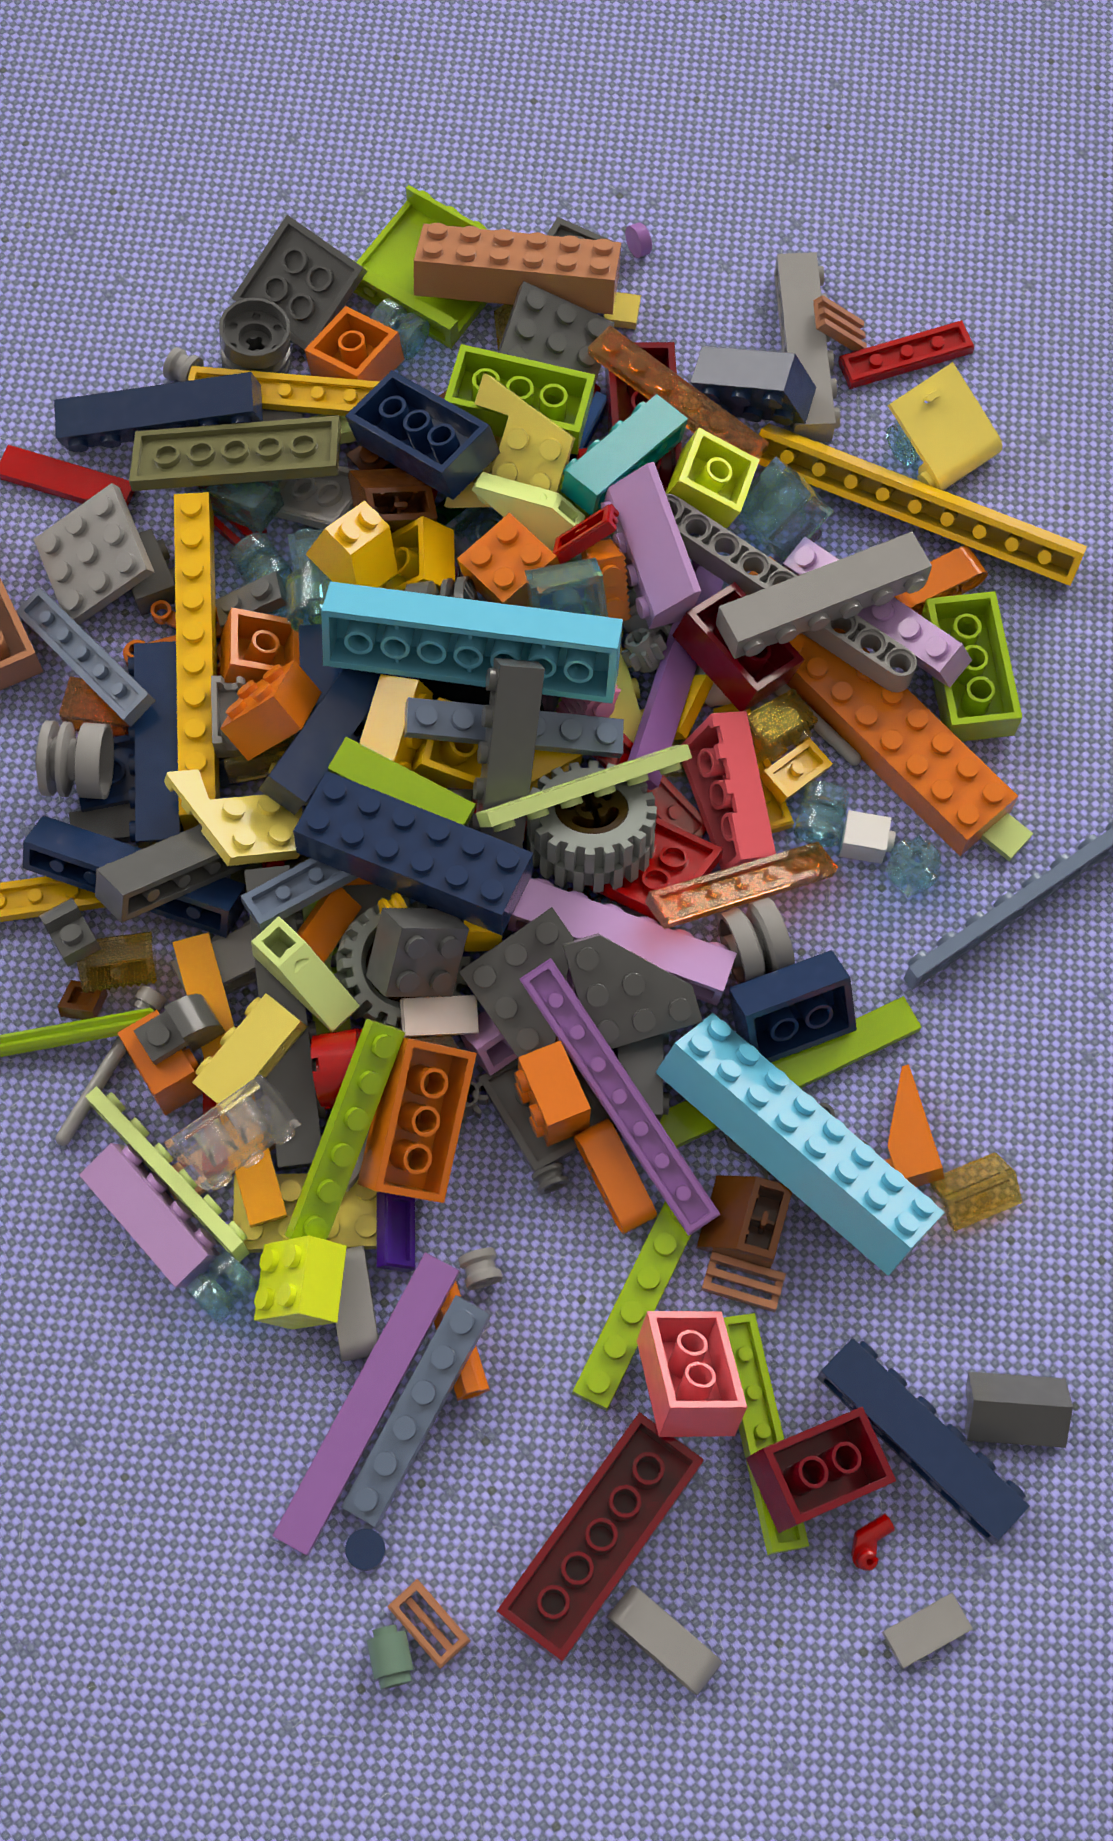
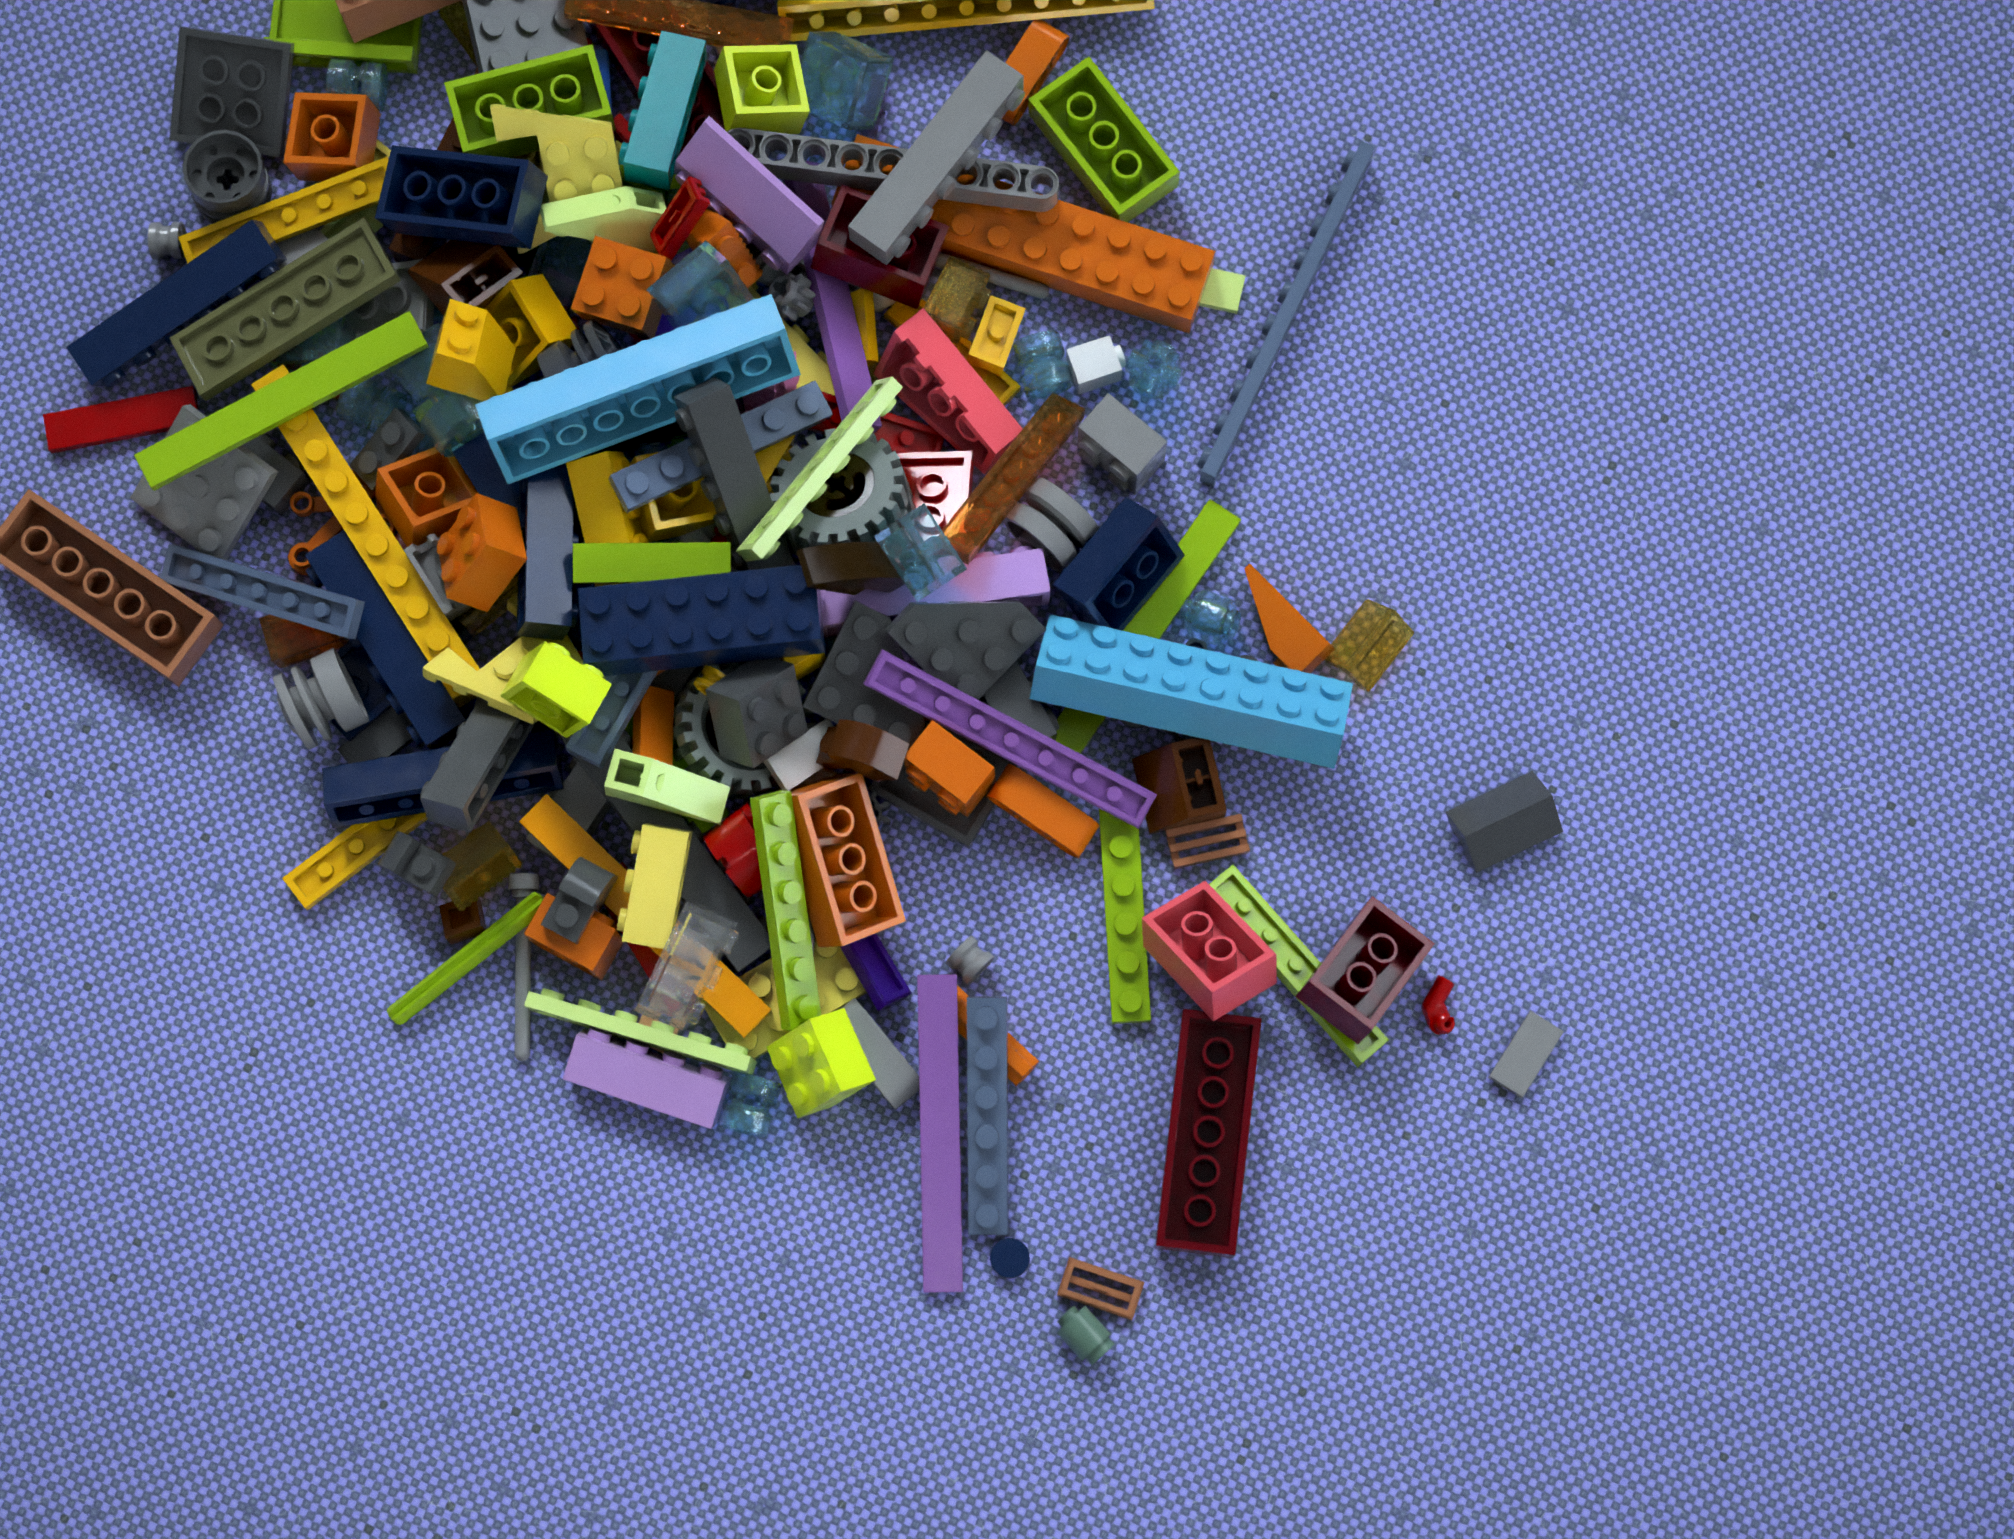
camera: 25 degrees left, 10 degrees up
(187, 515) = (281, 401): none -> lime tile
(259, 840) = (556, 688): none -> neon yellow brick
(488, 1034) = (863, 749): none -> reddish brown brick
(550, 1178) = (985, 844): dark grey bush -> none
(566, 876) = (848, 568): none -> dark brown slope
(629, 895) = (920, 552): none -> clear light blue brick
(664, 1640) = (1309, 1188): light grey beam -> none
(850, 1093) = (1211, 617): none -> clear light blue head
(851, 909) = (1120, 445): none -> light grey brick
(924, 1442) = (1438, 894): dark blue brick -> none
(933, 648) = (1012, 143): lavender brick -> none

